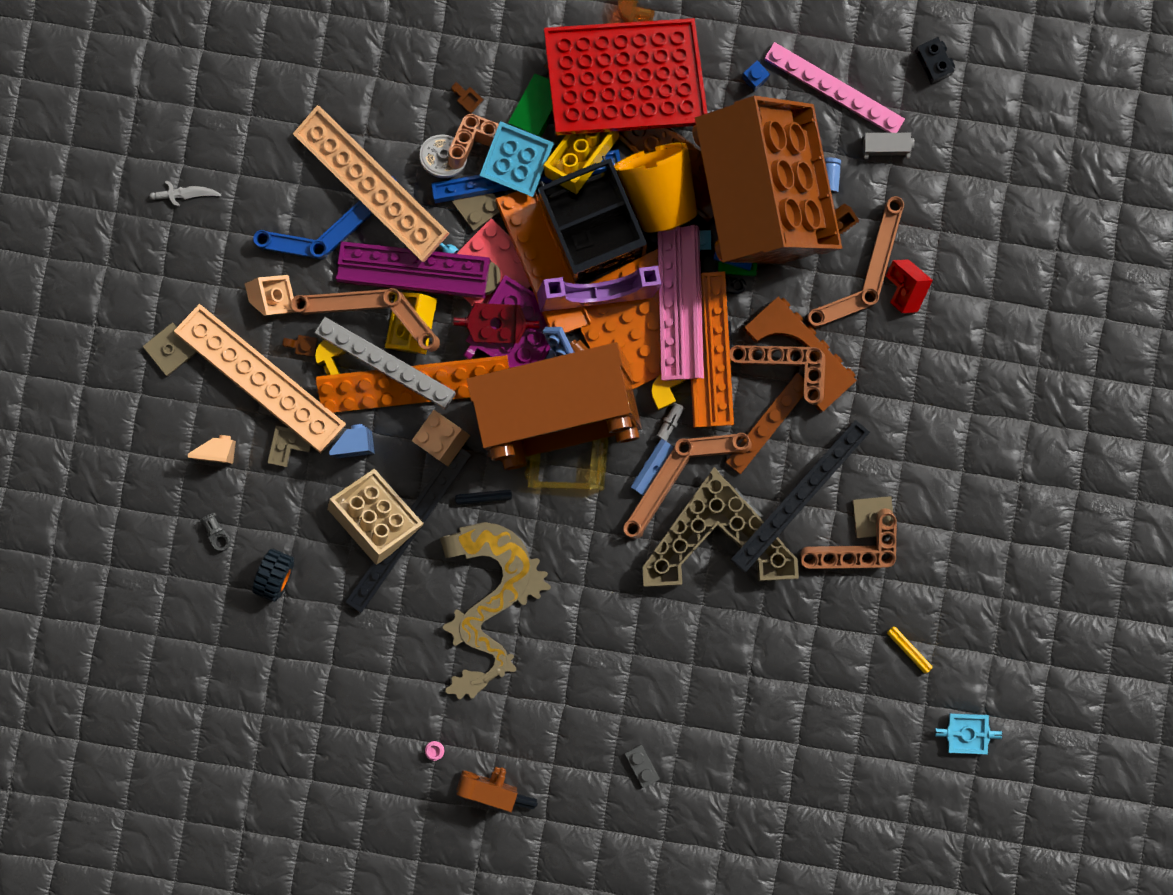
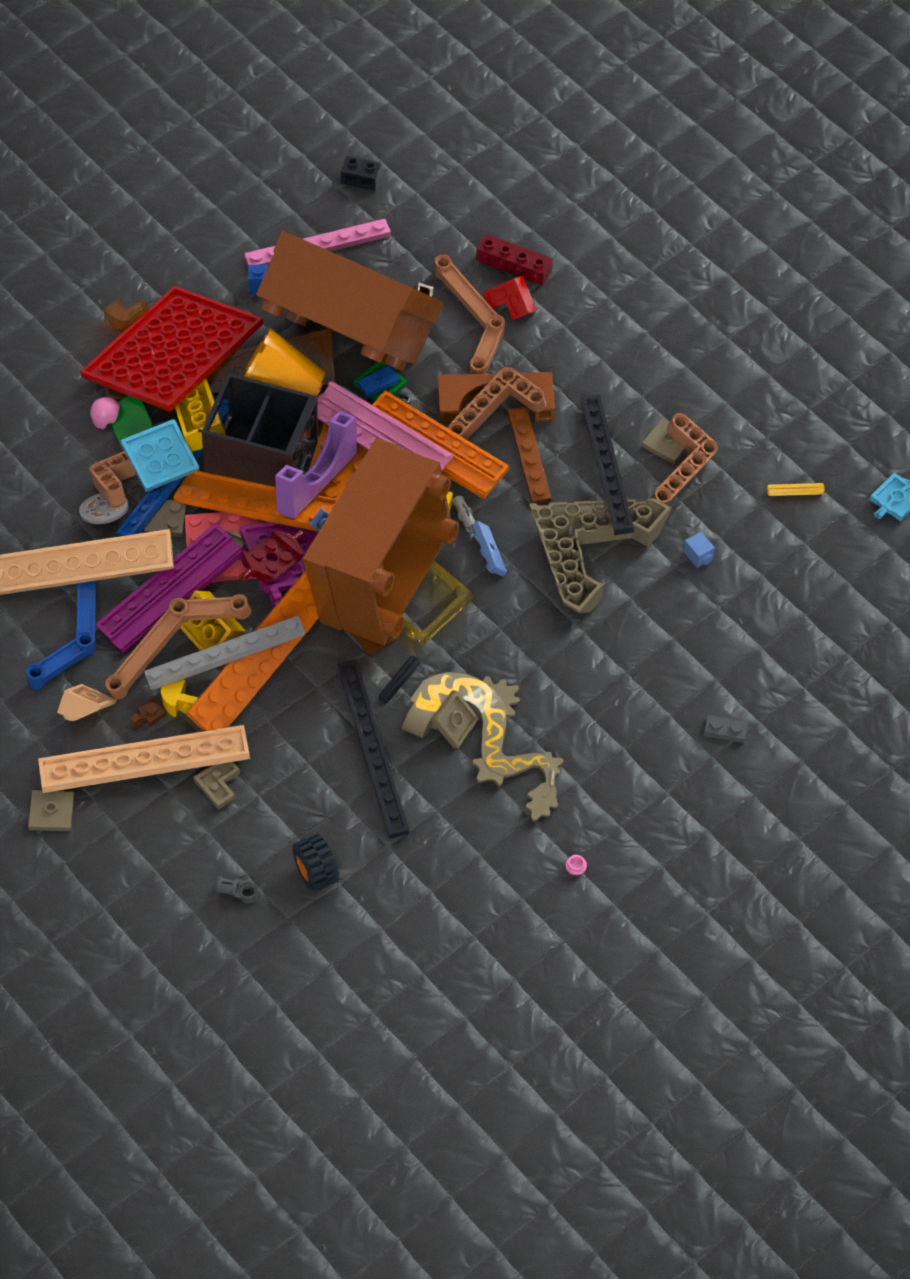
camera: 55 degrees left, 30 degrees down
(215, 450) = (171, 835): light nougat slope -> none
(354, 442) = (269, 720): medium blue slope -> none
(374, 516) = (339, 760): tan slope -> none
(440, 438) = (323, 666): light nougat brick -> none
(468, 98) = (77, 464): reddish brown plate -> none
(477, 569) = (454, 719): none -> dark tan plate
(493, 790) = (648, 836): dark orange piece -> none
(530, 76) = (104, 412): none -> bright pink hair
(671, 470) = (503, 537): nougat piece -> none
(786, 624) = (699, 549): none -> medium blue brick
(887, 144) = (392, 240): light grey brick -> none
(949, 254) = (514, 259): none -> dark red brick

